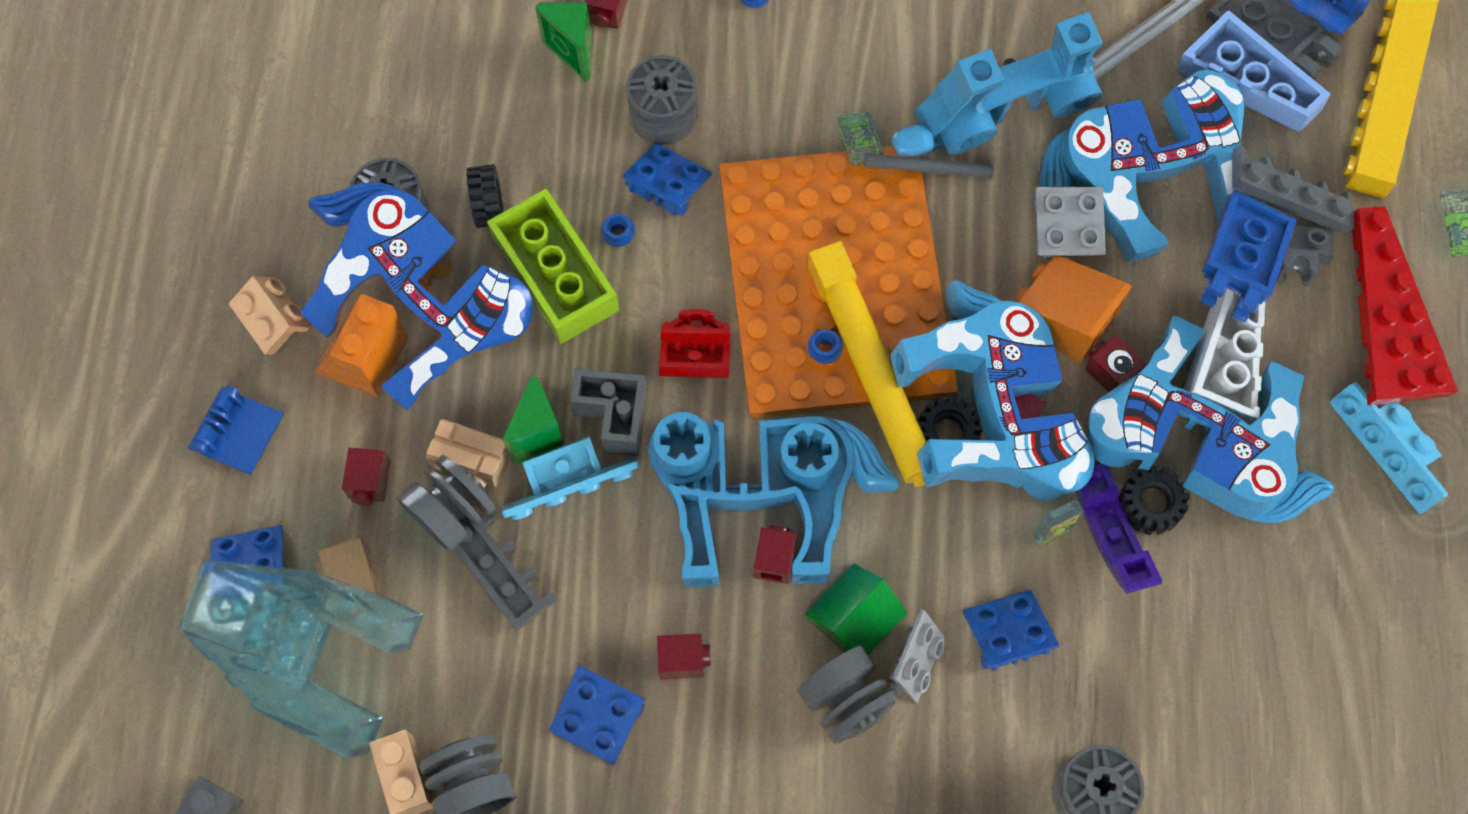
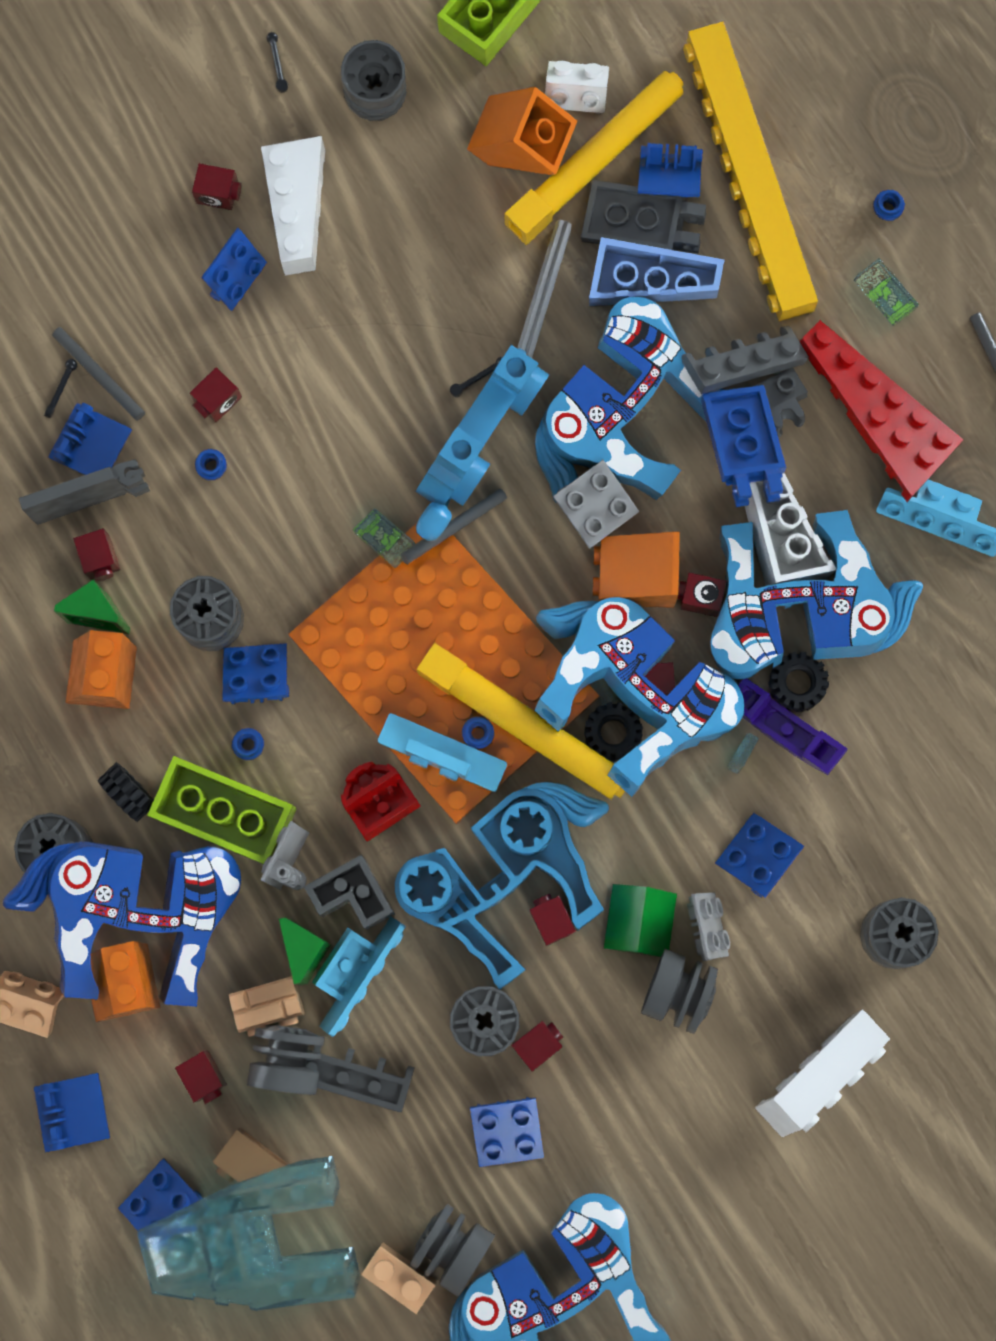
camera: 30 degrees left, 10 degrees up
(543, 89) = (101, 670): none -> orange slope
(577, 336) = (278, 868): none -> light grey hinge
(643, 618) = (465, 1025): none -> dark grey wheel
(781, 343) = (442, 752): none -> medium azure bracket

